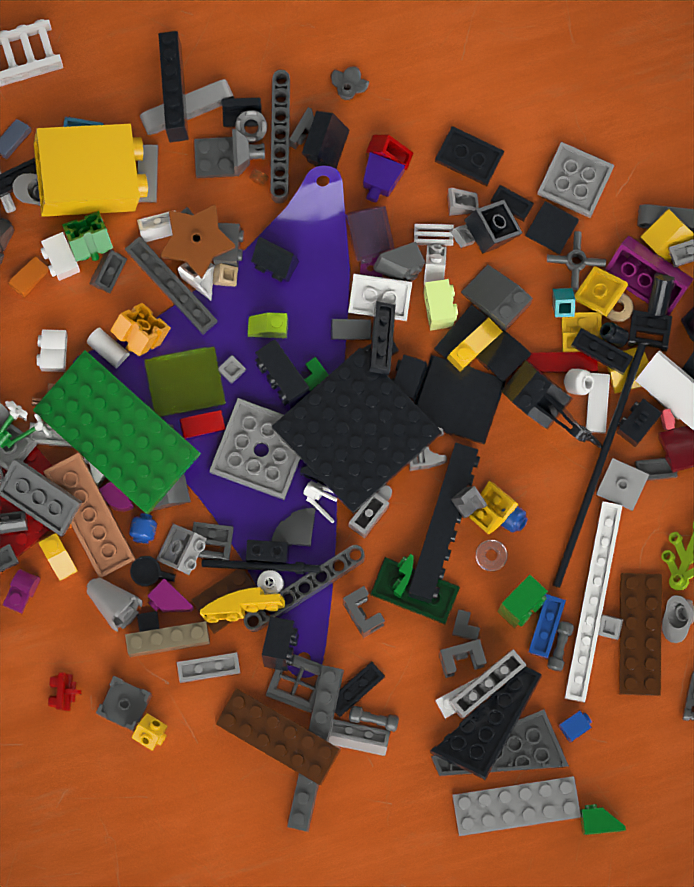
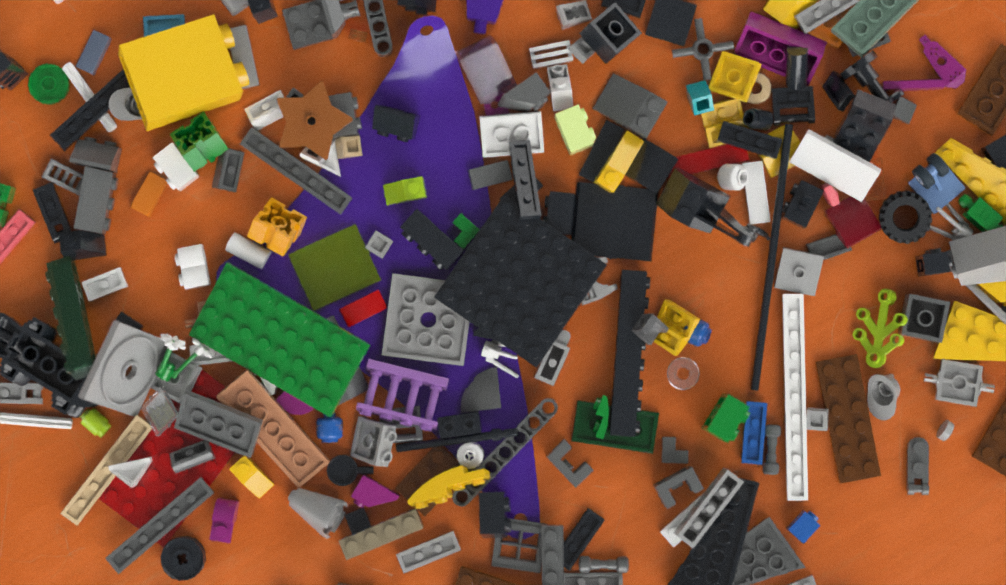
camera: 15 degrees left, 10 degrees up
(219, 492) = (416, 380): none -> medium lavender fence

